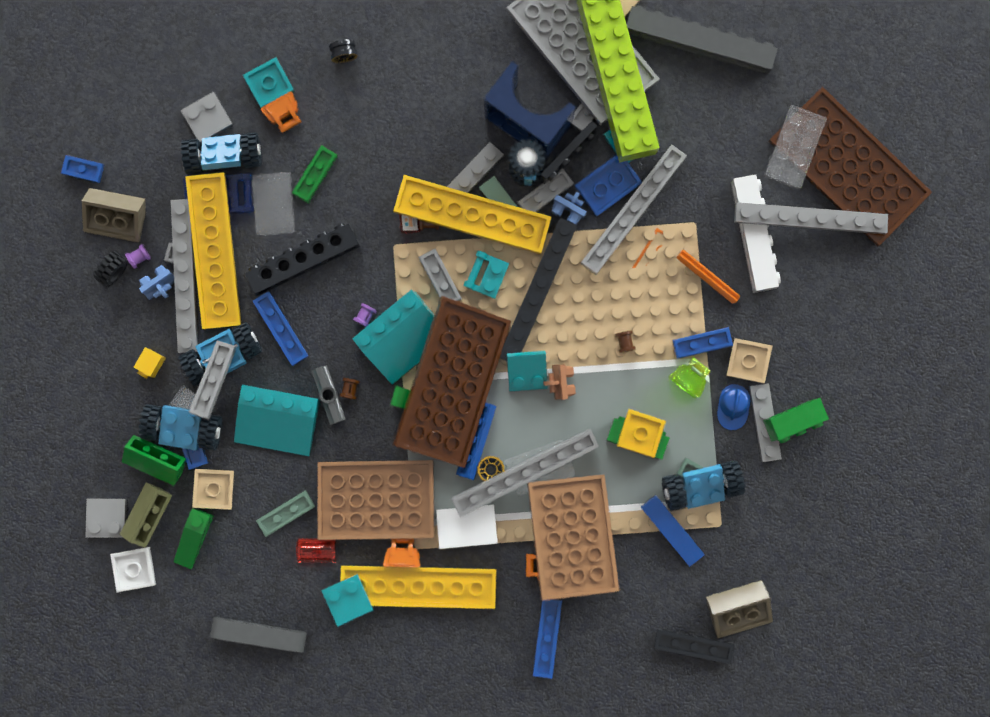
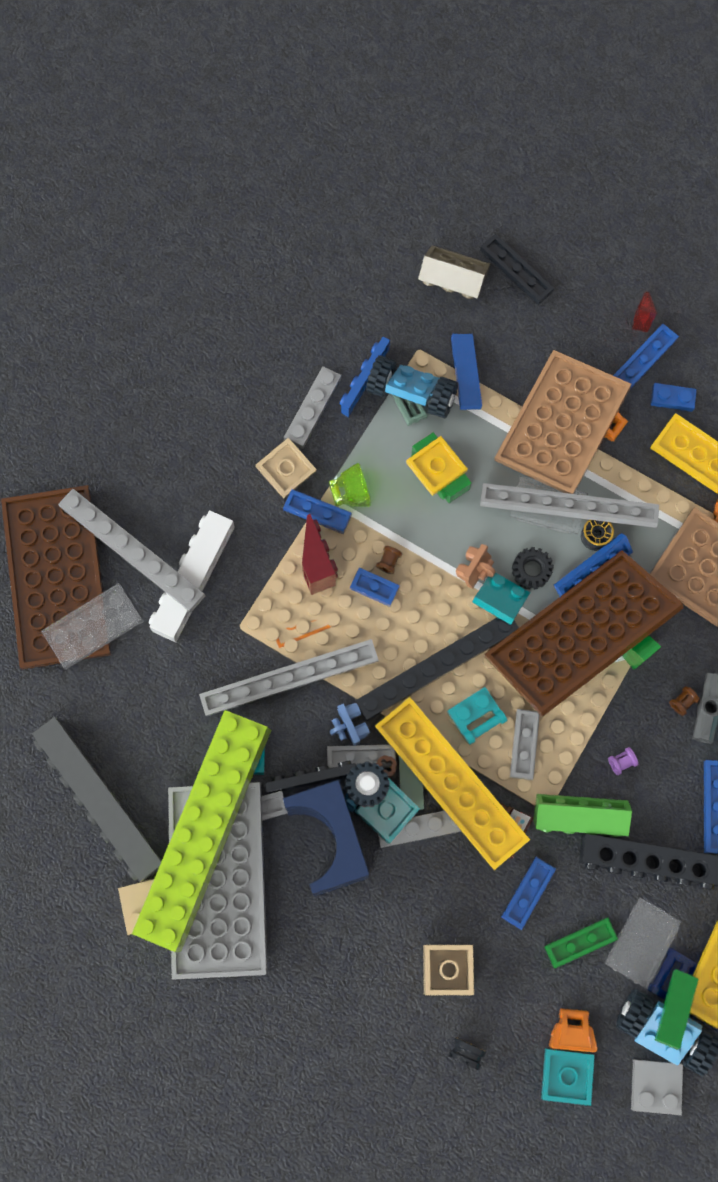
camera: 150 degrees left, 10 degrees down
(226, 166) = (676, 1009): none -> green tile
(369, 256) = (582, 815): none -> bright green brick
(370, 182) = (528, 893): none -> blue tile
(390, 93) = (448, 970): none -> tan brick
(397, 336) = (605, 715): teal slope -> none
(468, 530) = (650, 488): white tile -> none
(497, 166) = (390, 815): none -> teal plate
(504, 624) = (673, 397): none -> blue plate
(527, 199) = (388, 759): none -> reddish brown bush
(531, 409) = (537, 556): none -> black tyre
(571, 673) = (644, 313): none -> clear red slope
(607, 184) = (296, 720): blue tile -> none
(621, 314) = (374, 587): none -> blue plate
(675, 299) = (317, 568): none -> dark red slope
(708, 276) = (266, 567): orange axle -> none
(733, 407) = (330, 440): blue piece -> none
(741, 445) = (359, 383): none -> blue plate
(796, 420) = (285, 386): green brick -> none

